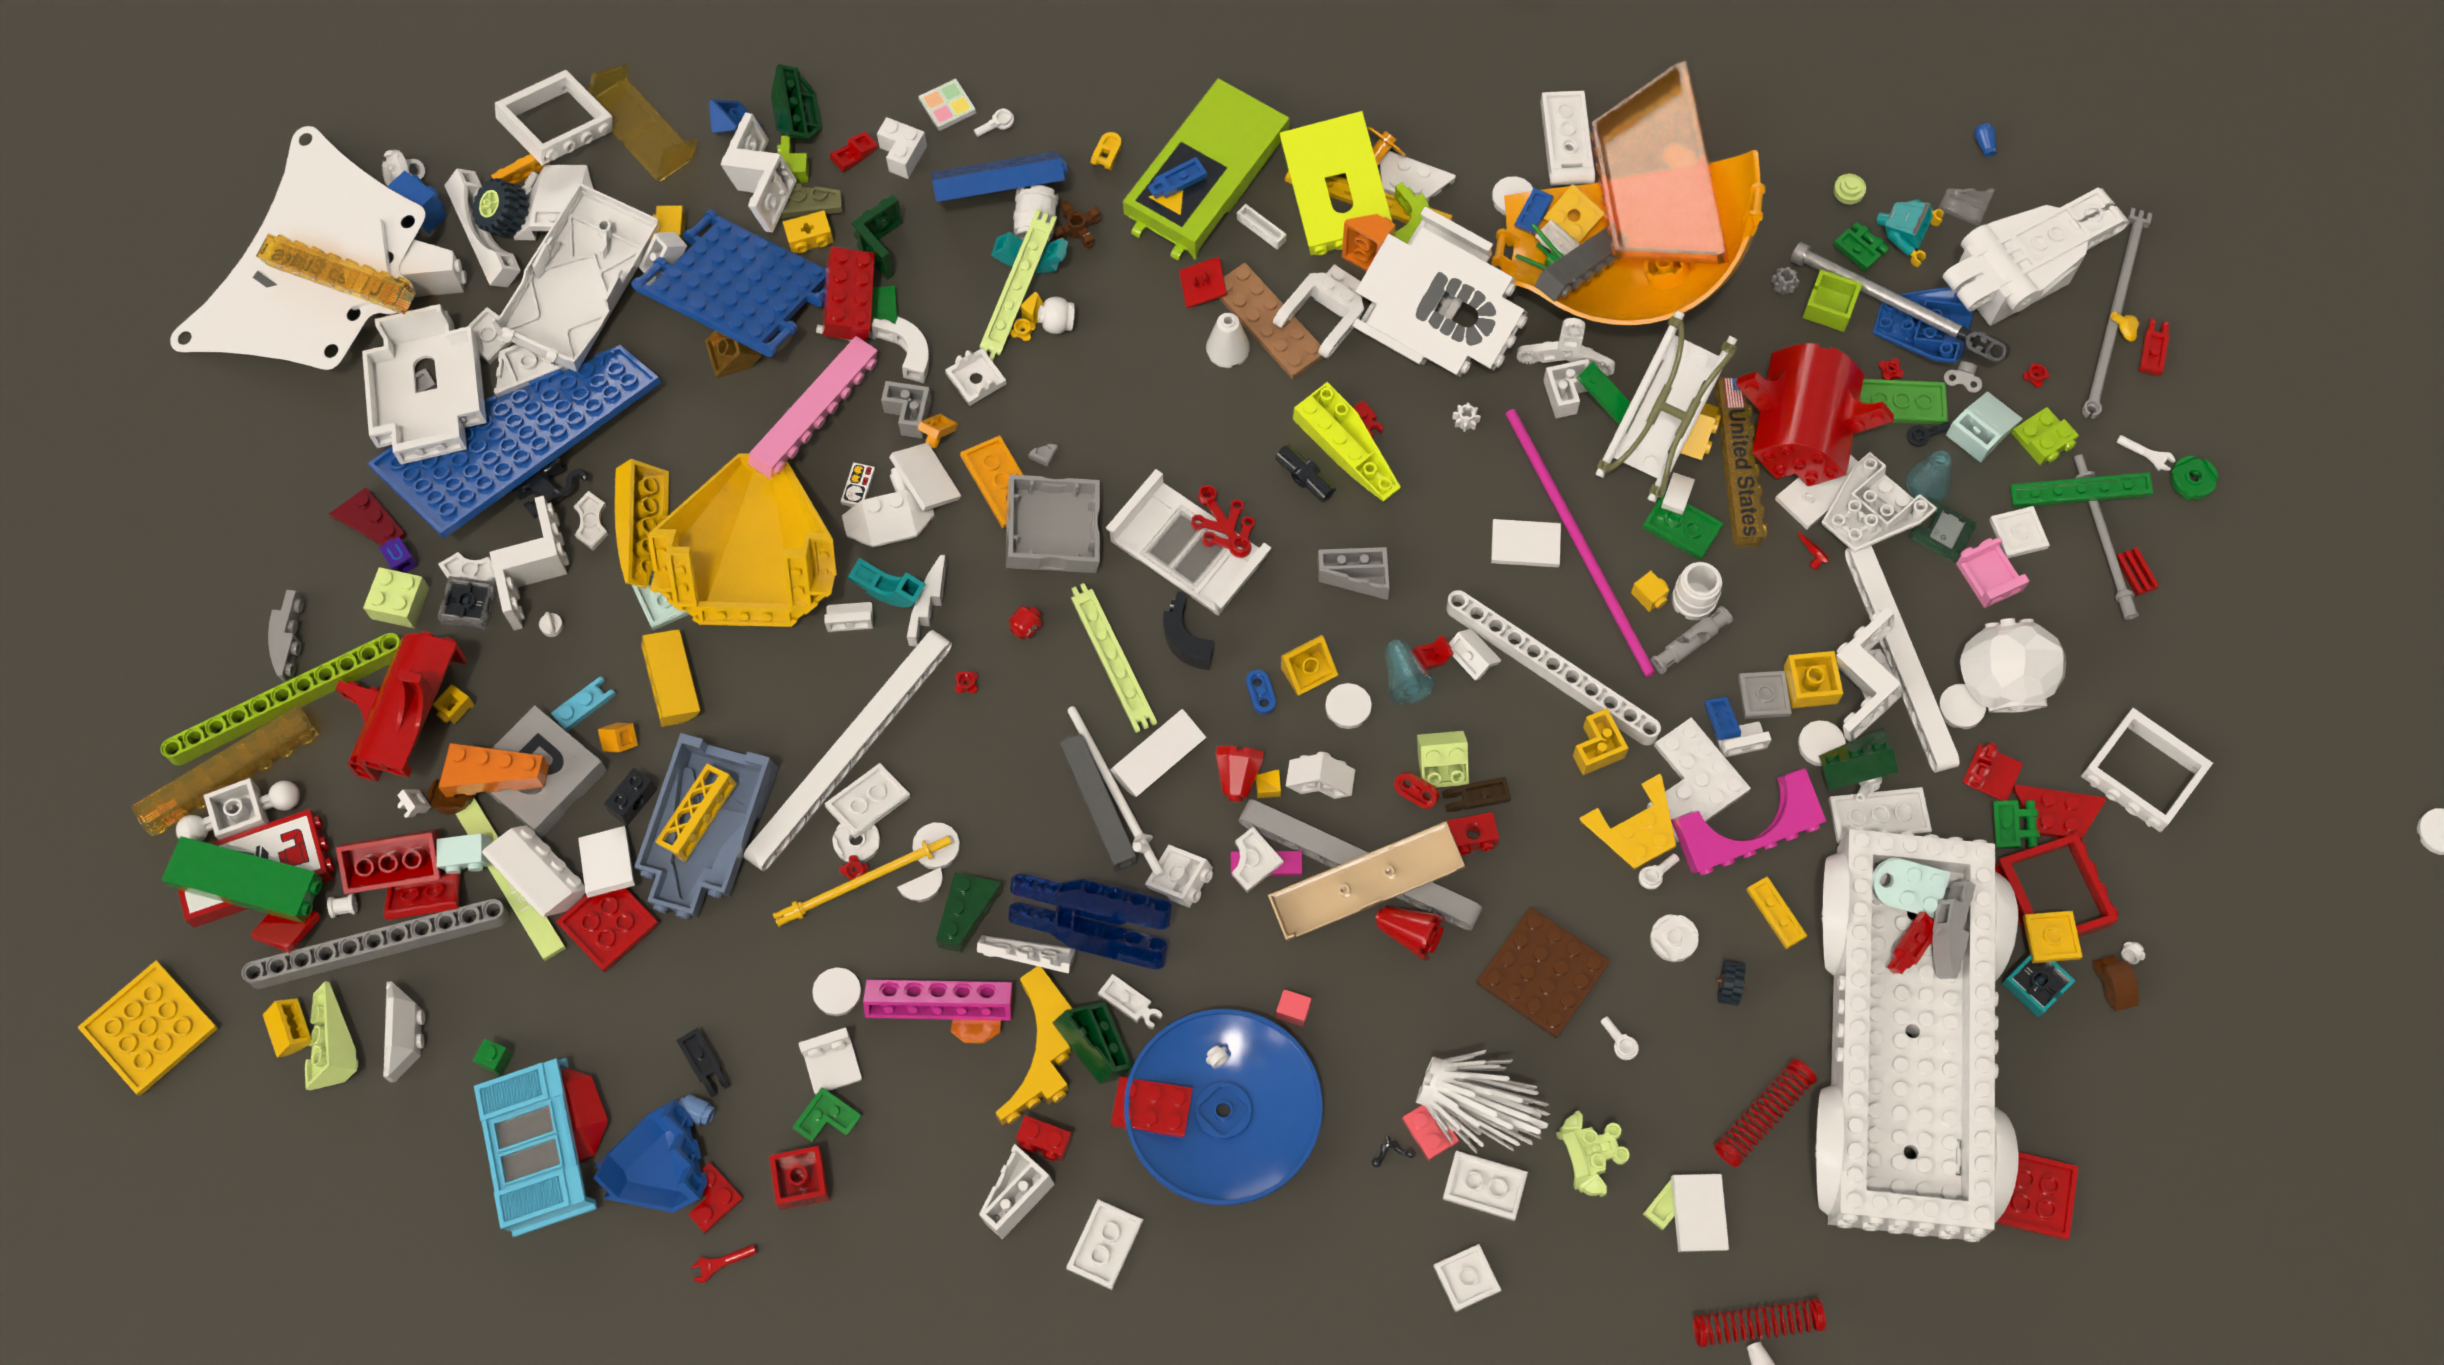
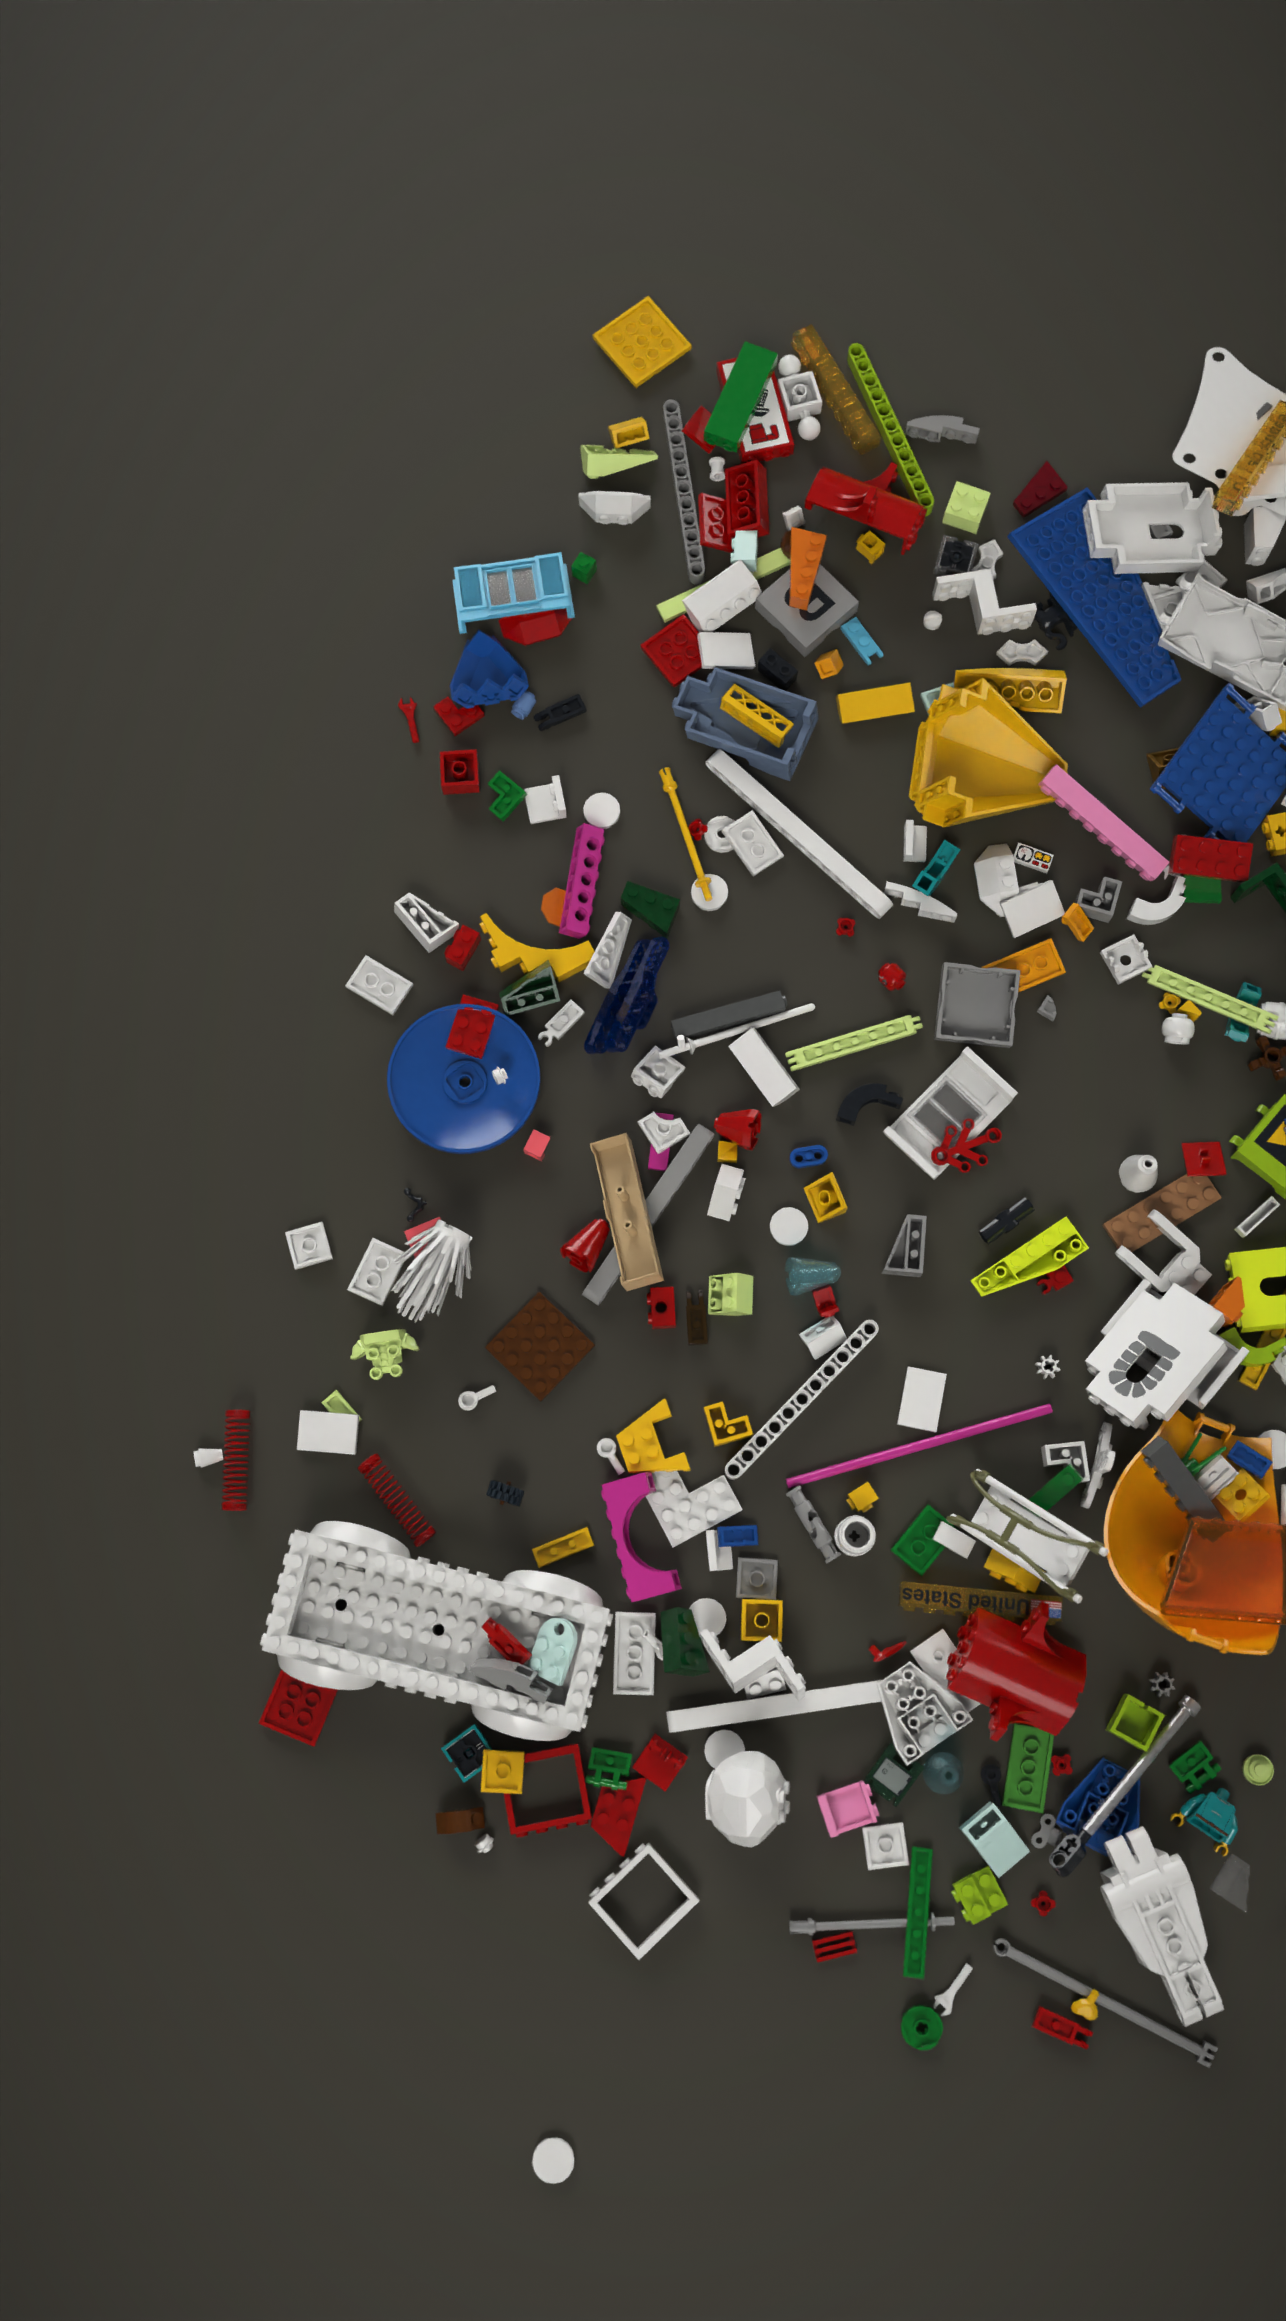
camera: 100 degrees right, 10 degrees up
(398, 555) = (1003, 509): dark purple brick -> none
(923, 887) = (676, 880): white tile -> none
(1416, 792) = (706, 1269): red plate -> none
(1674, 938) = (553, 1458): white tile -> none

